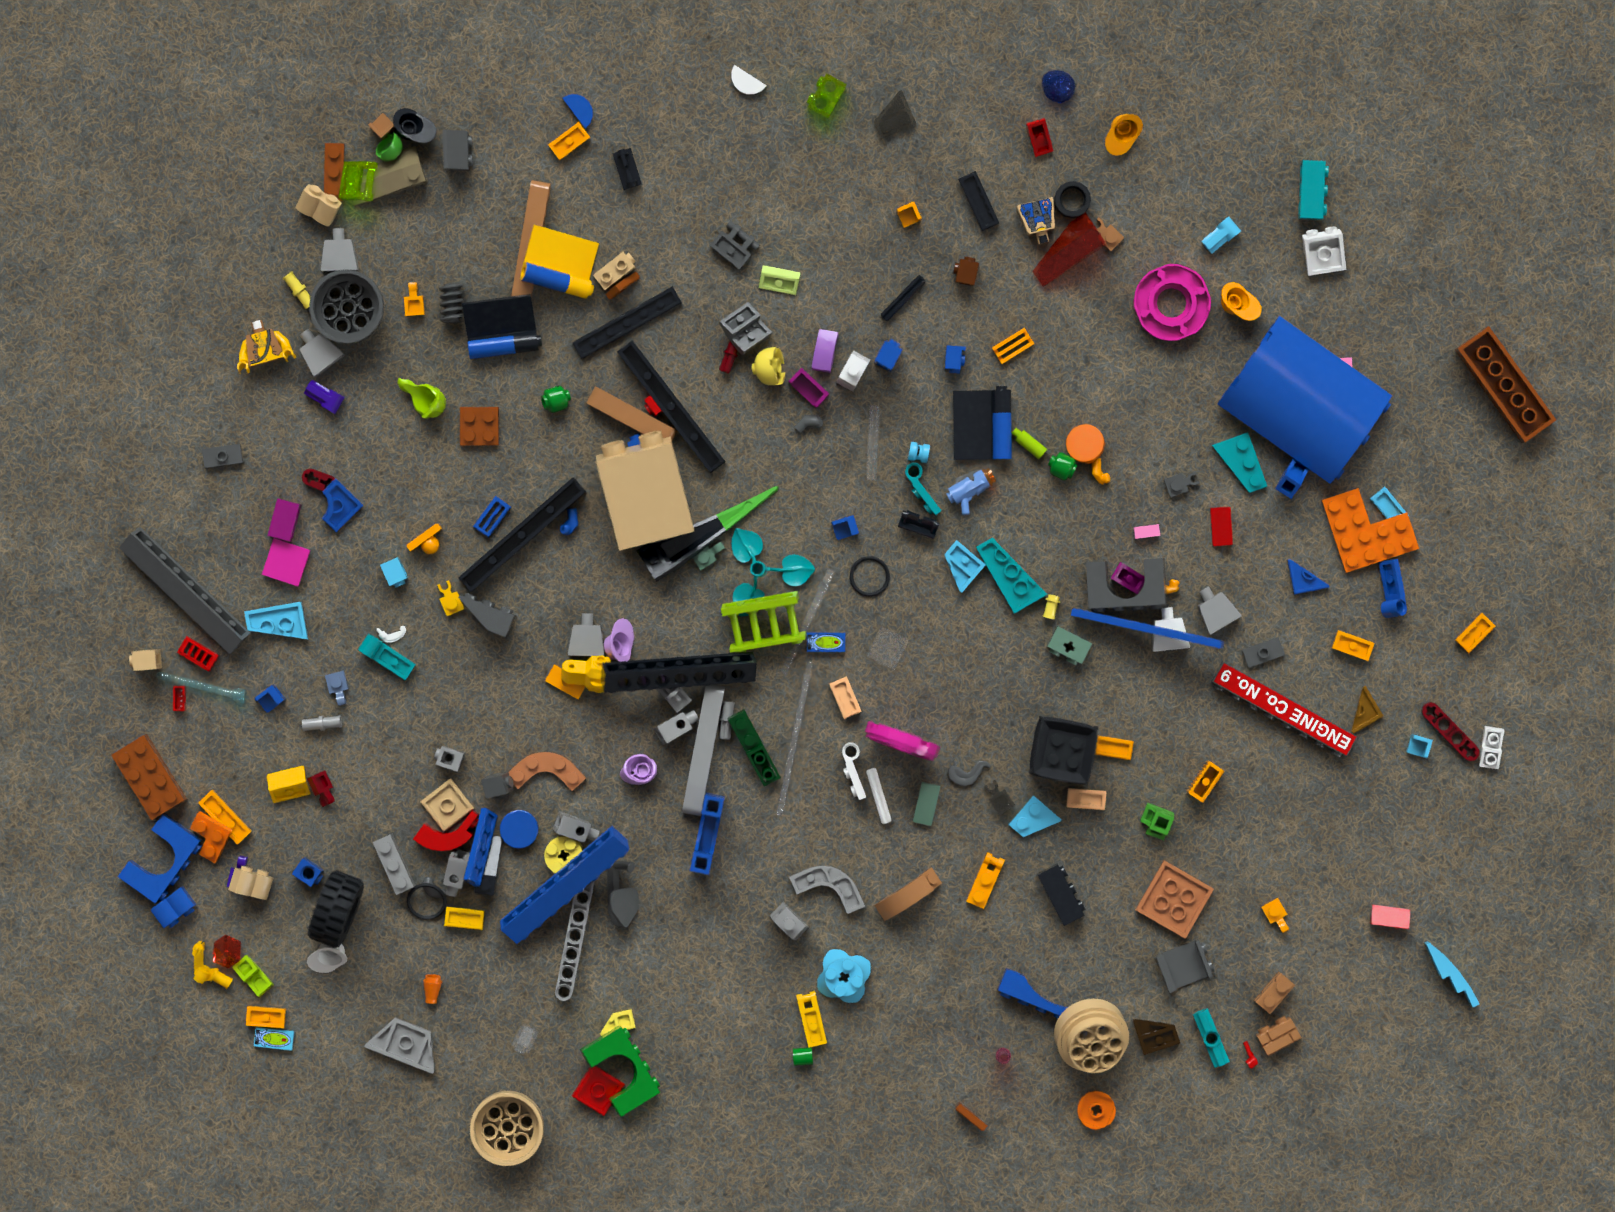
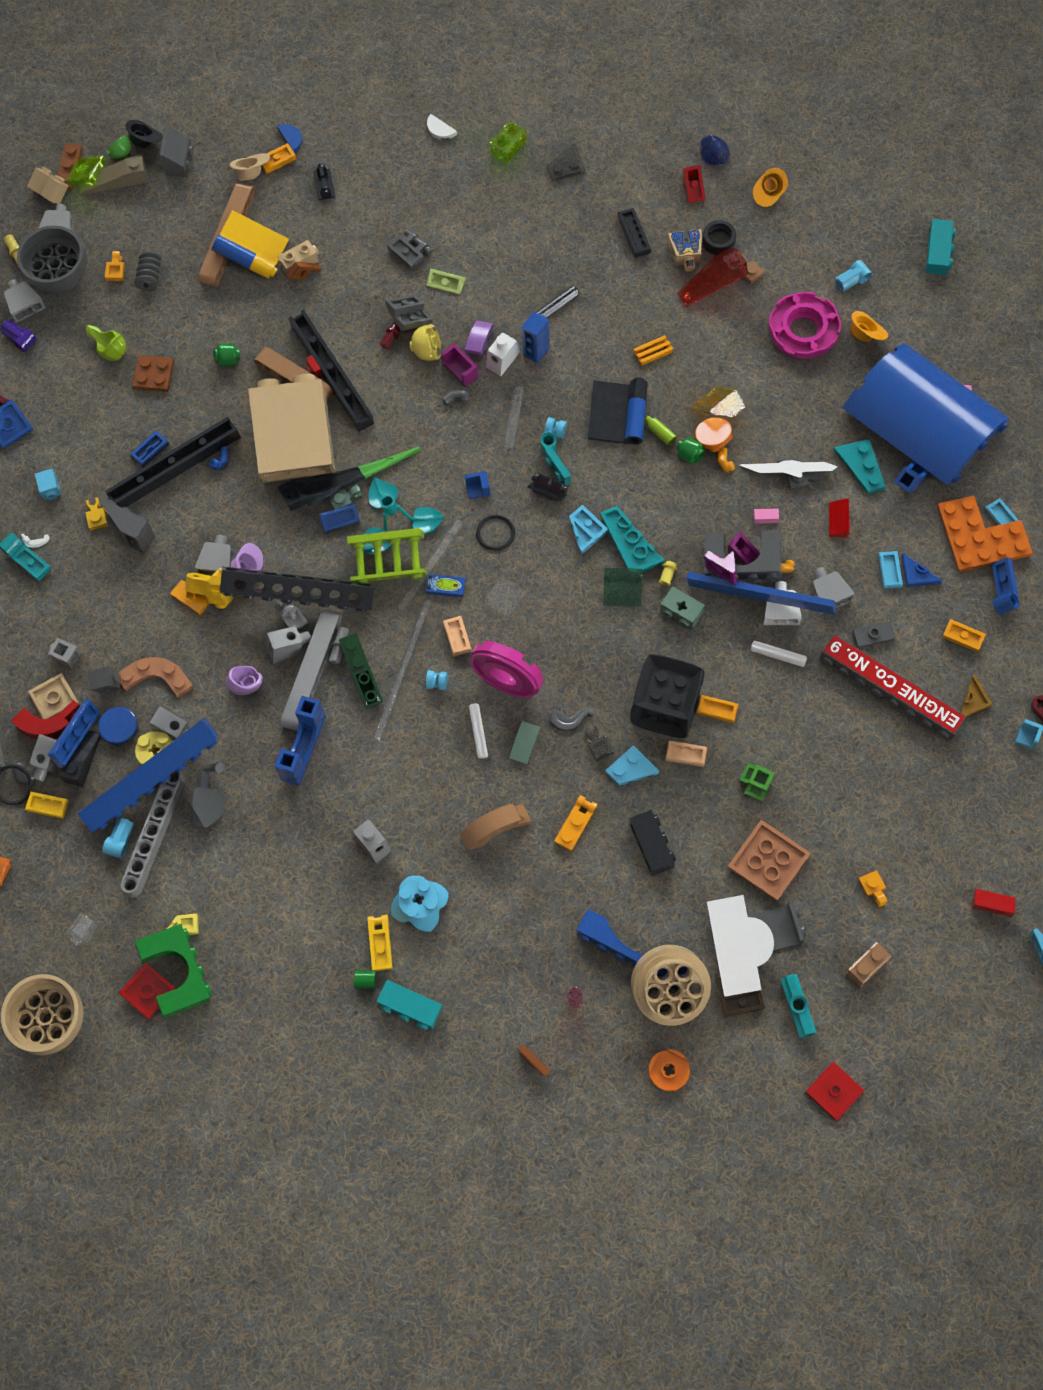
camera: 10 degrees right, 20 degrees down
(382, 126) = (116, 133): medium nougat panel -> none
(428, 542) = (83, 460): light orange tile -> none
(501, 326) = (187, 291): black door -> none
(541, 156) = (249, 167): none -> tan piece
(541, 948) = (117, 842): none -> medium azure piece
(627, 322) = (304, 301): black tile -> none
(706, 578) = (339, 518): none -> blue tile
(826, 748) = (433, 677): none -> medium azure wheel
(829, 877) = (420, 803): light grey plate -> none
(848, 1077) = (409, 1005): none -> teal brick
(851, 772) = (453, 703): white plate -> none
(908, 214) = (569, 235): light orange panel -> none
(954, 358) = (598, 352): blue brick -> none
(966, 271) = (616, 285): reddish brown brick -> none
(968, 486) = (600, 460): medium blue piece -> none
(1007, 628) = (622, 587): none -> clear green hinge
(1087, 407) = (720, 401): none -> clear yellow slope
(1111, 609) = (722, 567): none -> magenta slope
(1152, 987) = (740, 944): none -> white sticker
(1168, 473) = (790, 467): none -> white sticker
(1169, 682) = (778, 653): none -> white axle
(1205, 781) = (808, 745): light orange brick -> none
(1249, 1111) = (834, 1091): none -> red plate
(1252, 1061) = (840, 1037): red hand -> none
(1276, 578) = (890, 570): none -> medium azure tile
(1278, 1036) = (870, 1011): medium nougat brick -> none
(1324, 251) = (948, 295): white plate -> none

